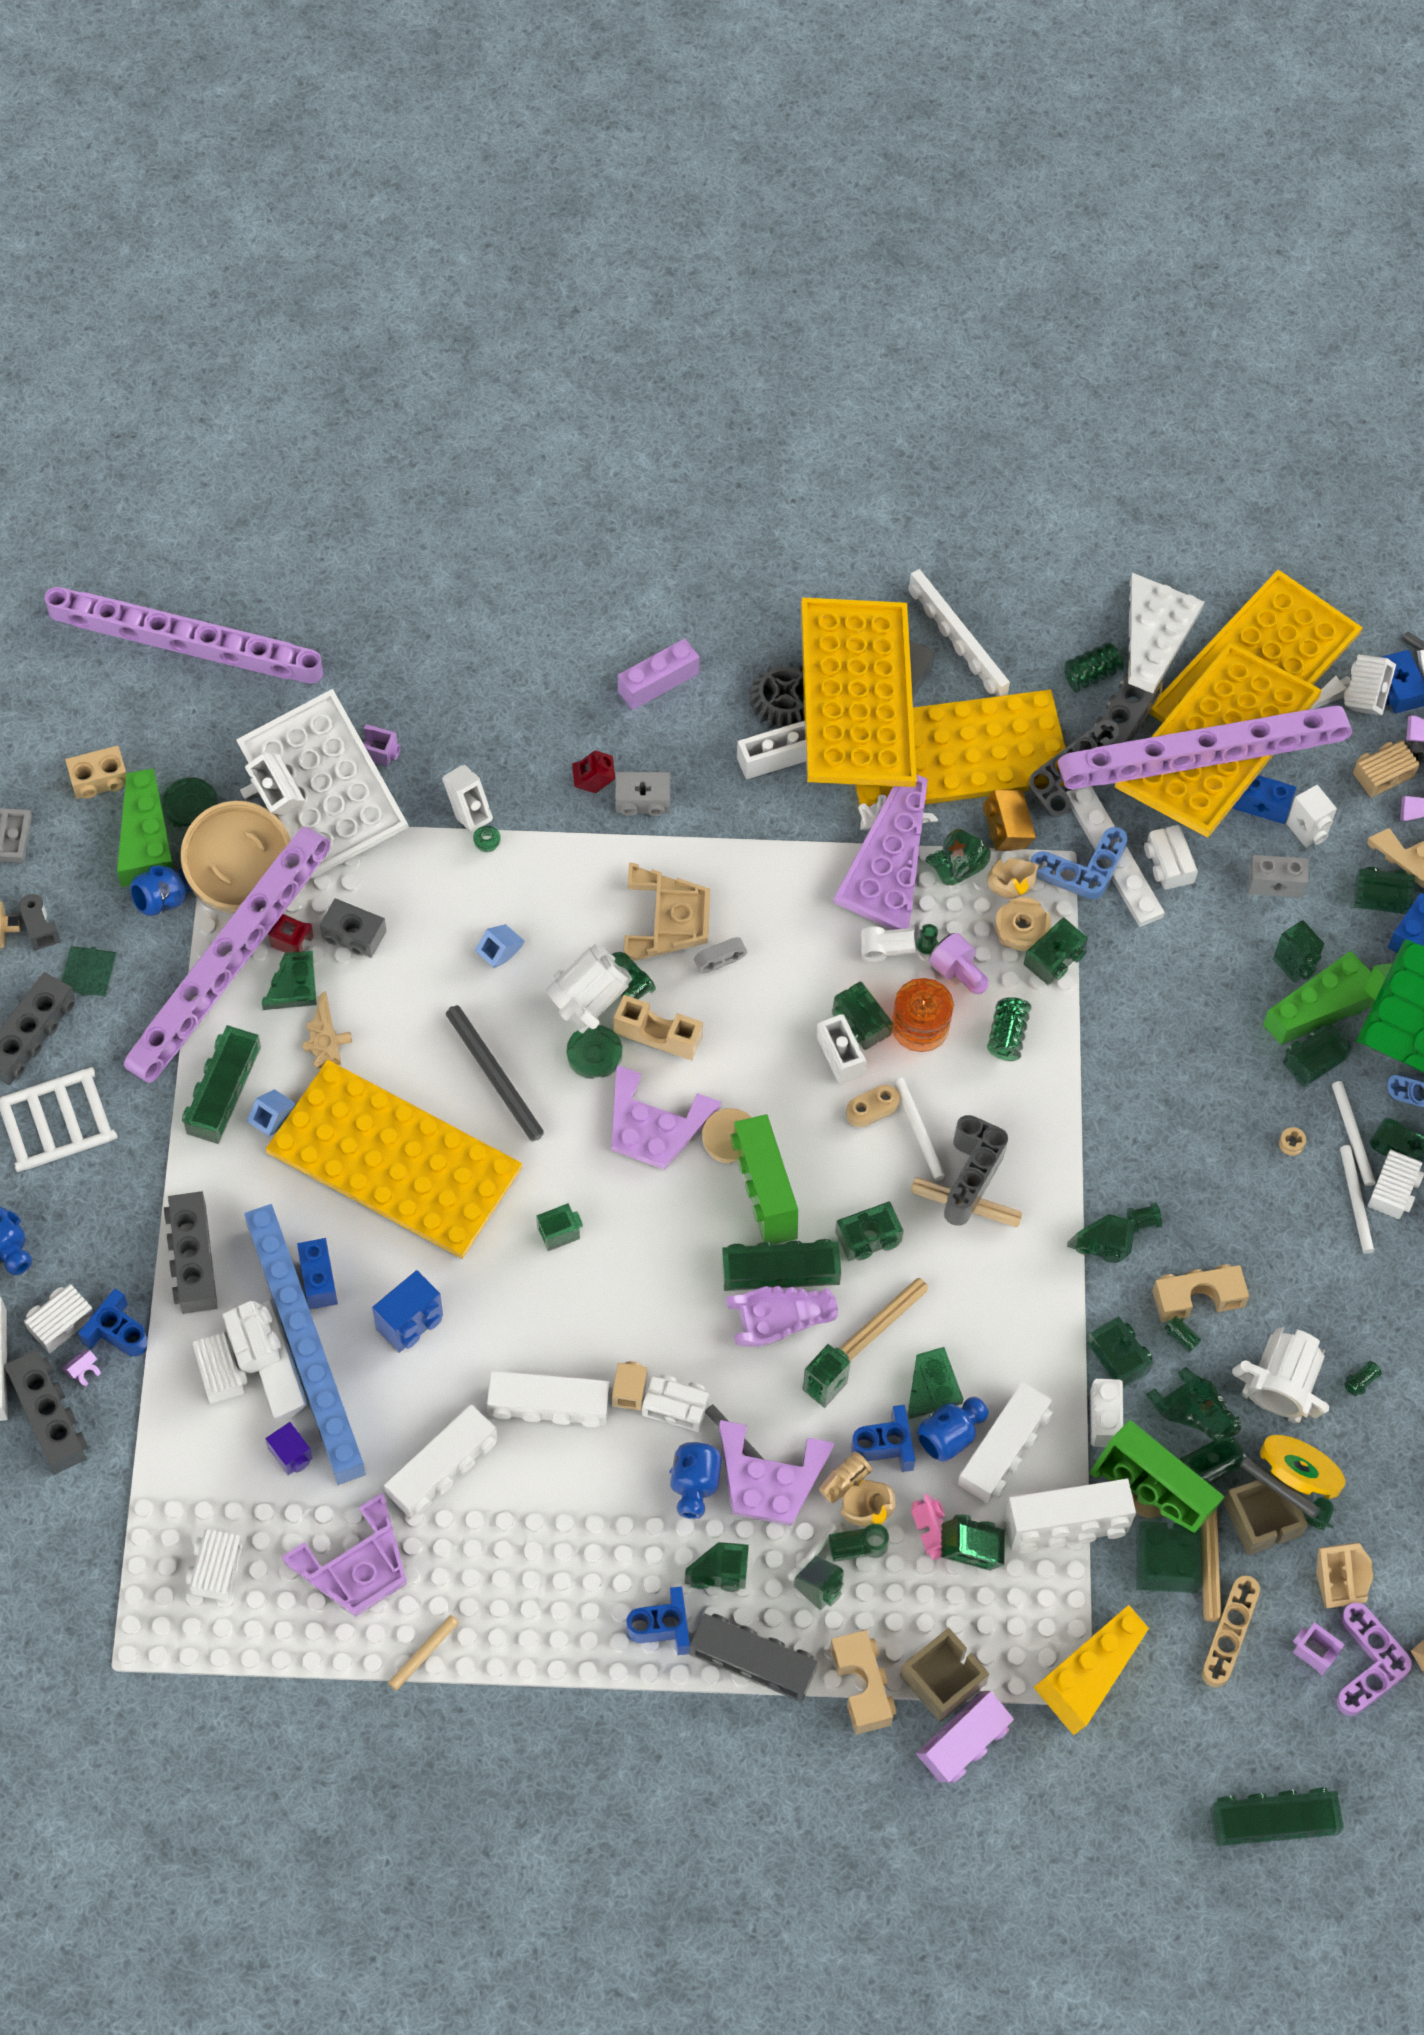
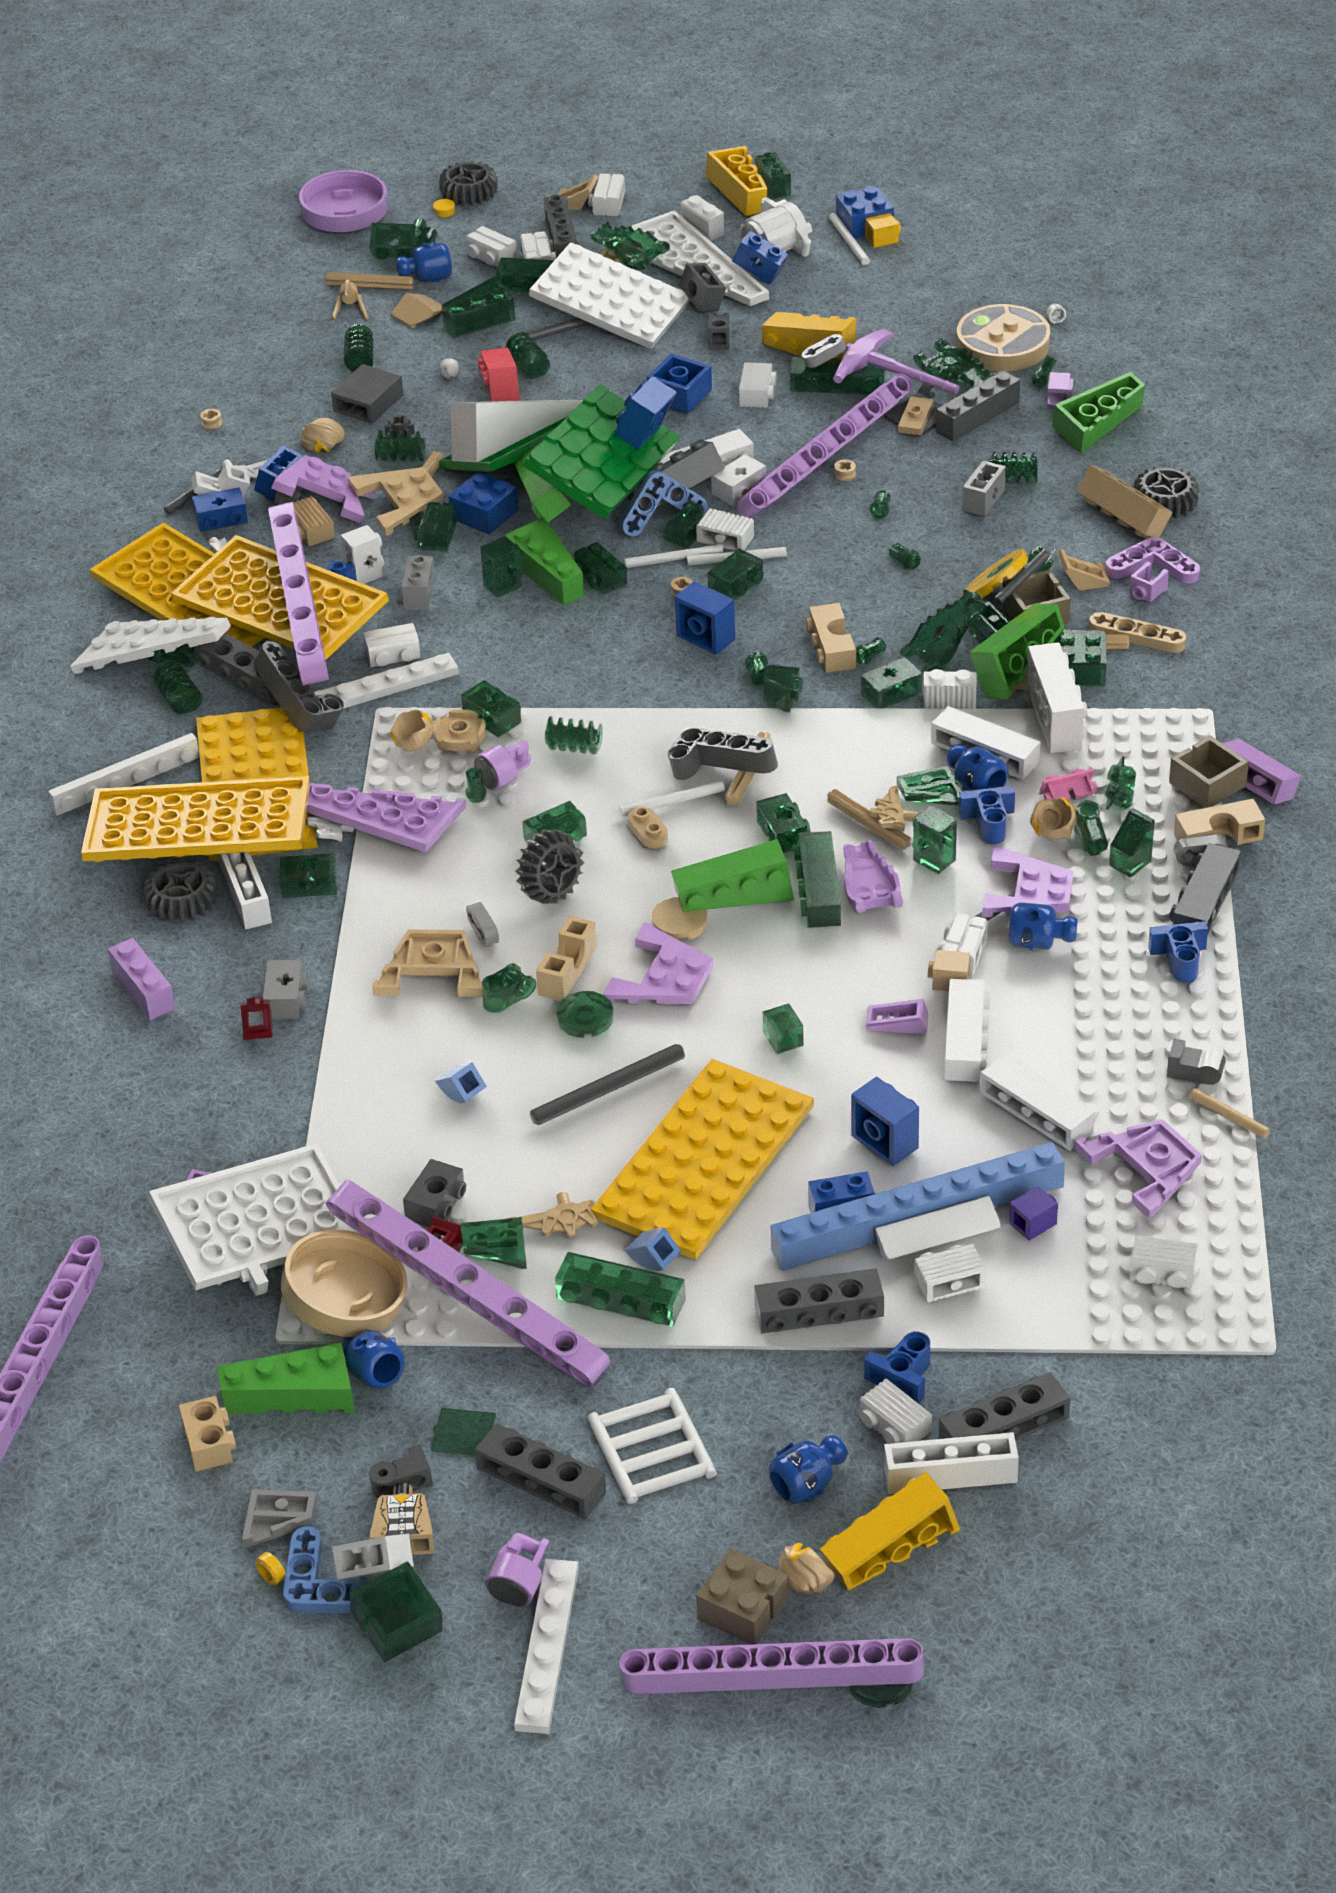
camera: 85 degrees left, 20 degrees down
(79, 1364) = (947, 1393): lavender tile -> none
(187, 800) = (250, 1345): clear green tile -> none
(251, 1336) = (919, 1234): white brick -> none
(274, 783) = (265, 1235): white brick -> none
(467, 798) = (284, 1106): white brick -> none
(486, 845) = (330, 1100): clear green plate -> none
(489, 1620) = (1195, 1064): none -> dark grey leg
(573, 1355) = (907, 1017): none -> lavender slope
(588, 987) = (528, 995): white container -> none
(720, 1567) = (1121, 912): clear green slope -> none
(783, 1005) = (549, 866): none -> dark grey gear
(805, 817) = (308, 875): none -> clear green brick
(812, 1553) = (1109, 868): white piece -> none
(824, 1656) = (1195, 846): none -> light grey beam
(841, 1049) = (597, 834): white brick -> none
(842, 1478) = (1025, 838): tan hinge -> none
(879, 944) = (476, 817): white piece -> none
(887, 1338) = (891, 812): none -> tan piece
(922, 1014) = (559, 778): clear orange wheel -> none
(924, 1580) = (1121, 785): none -> clear green hinge
(960, 858) = (386, 762): clear green piece -> none
(973, 1542) = (1086, 752): clear green brick -> none
(1008, 820) = (344, 740): pearl gold brick -> none
(1087, 1675) = (1188, 694): yellow wedge -> none
(1090, 873) = (381, 675): medium blue beam -> none
(1216, 1157) = (705, 617): none -> blue brick
(1277, 1817) = (1295, 608): clear green brick -> none
(1285, 1376) = (910, 584): white container -> none
(1310, 1194) = (736, 574): none -> clear green piece
(1369, 684) = (225, 518): white brick -> none

